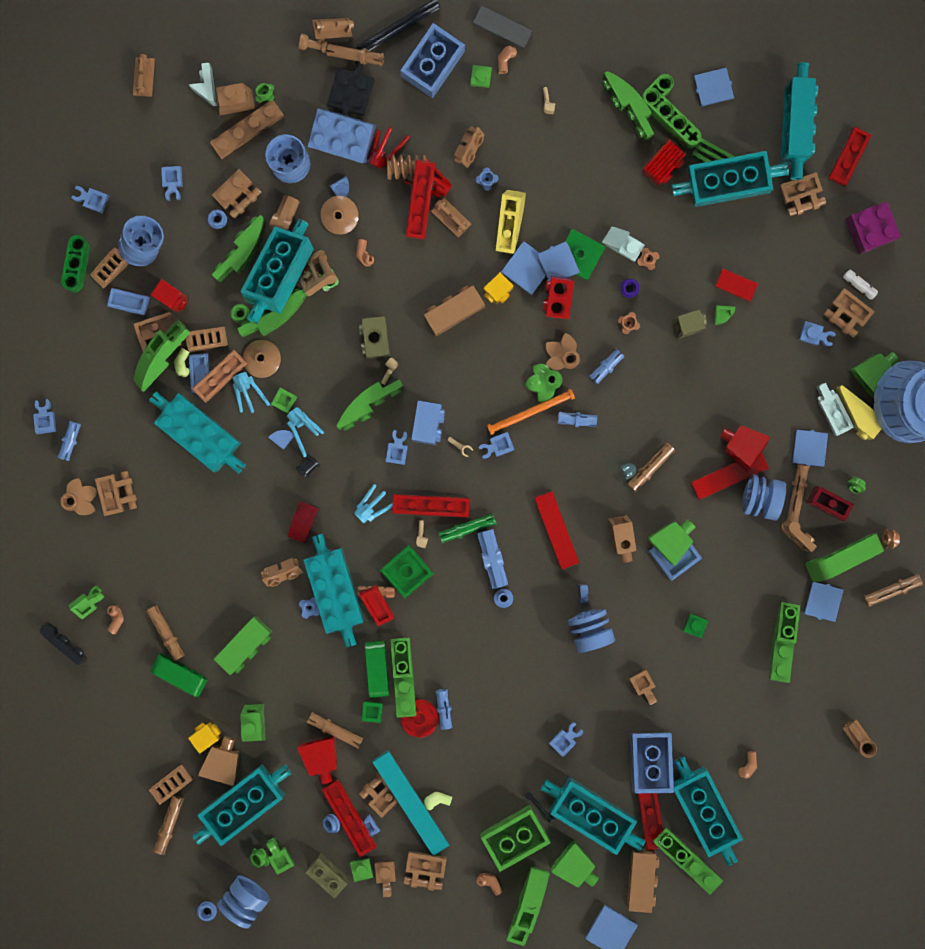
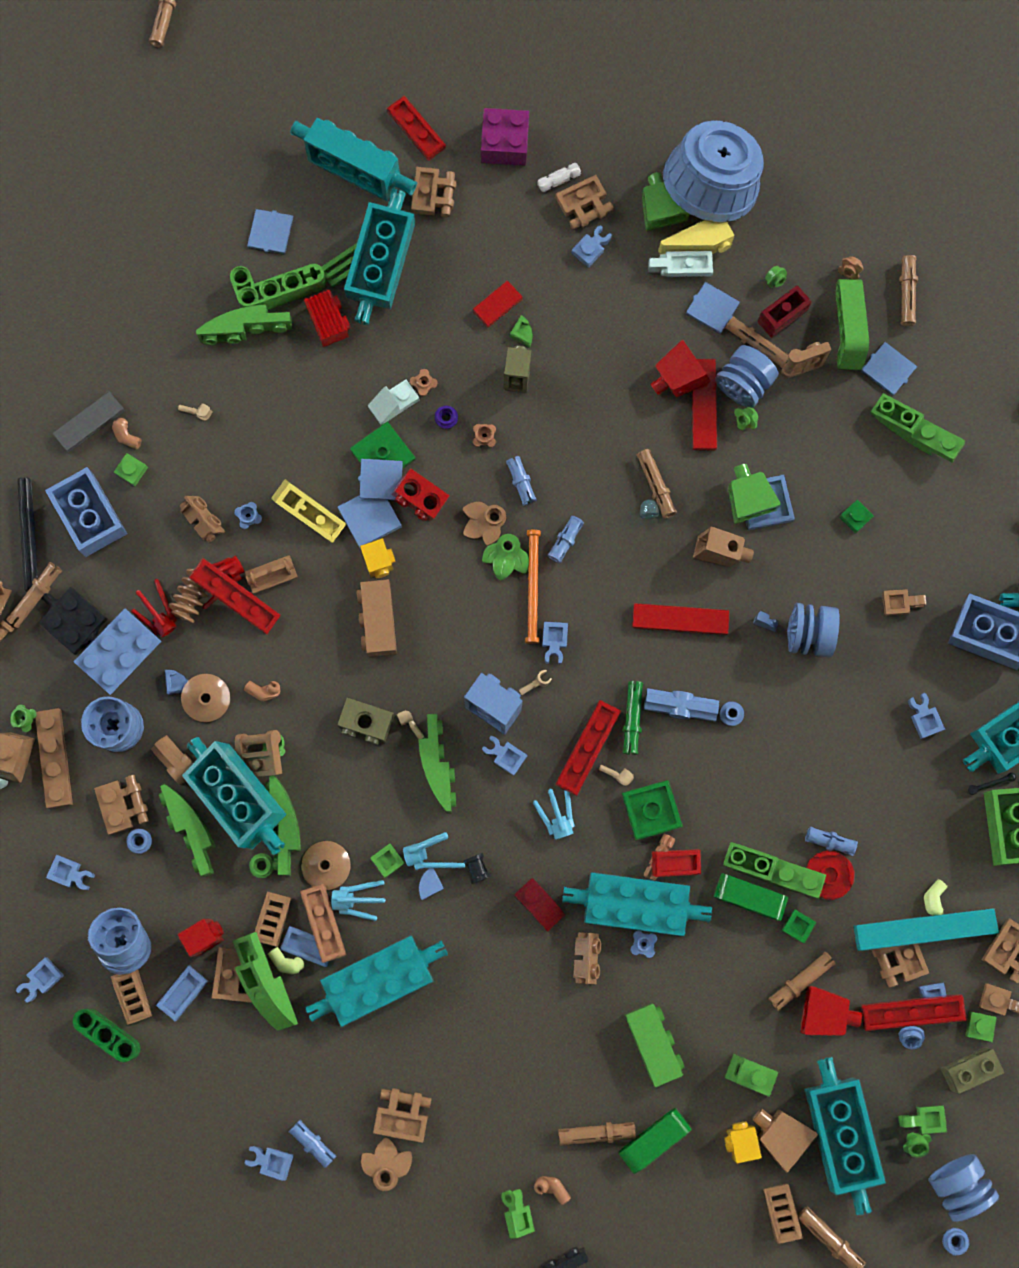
camera: 70 degrees left, 10 degrees down
(733, 511) = (750, 415): none -> bright green plate

